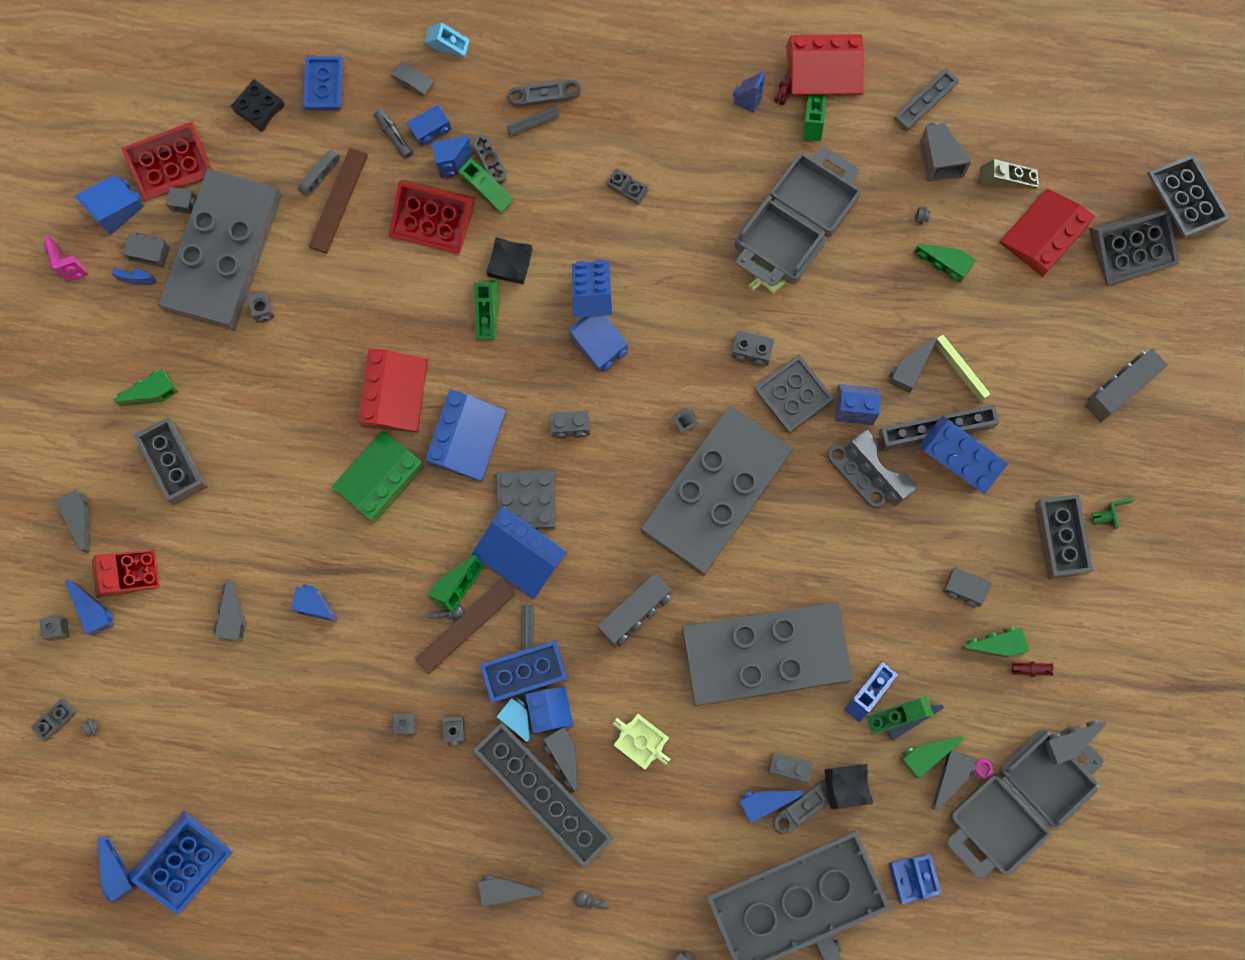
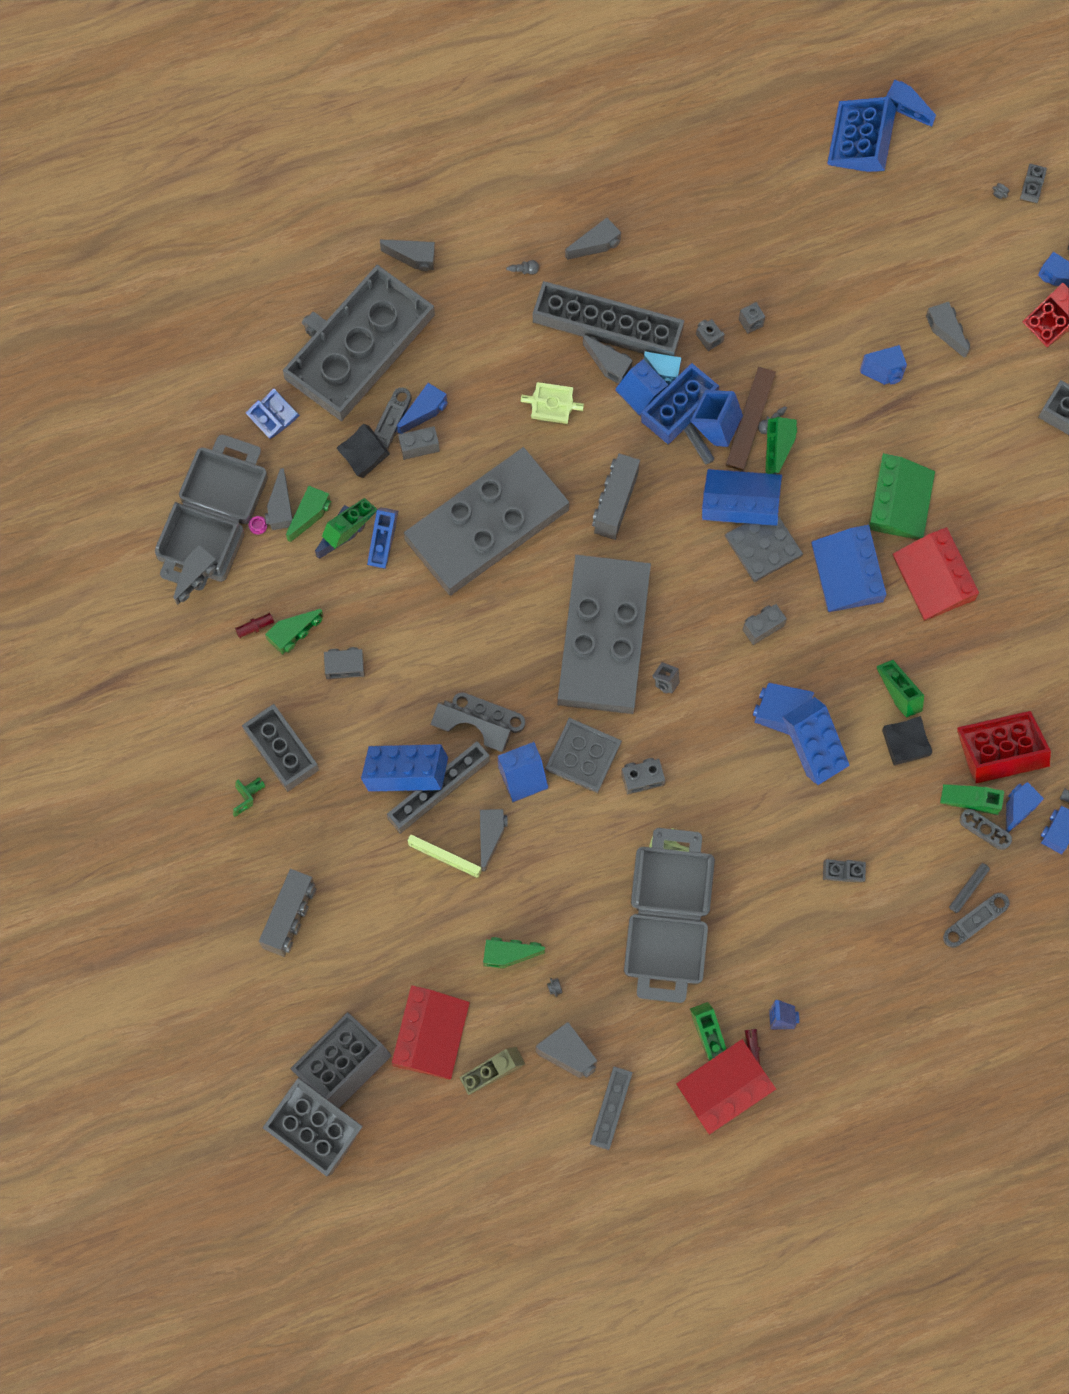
camera: 145 degrees right, 5 degrees down
(500, 635) = (718, 416): none -> blue slope

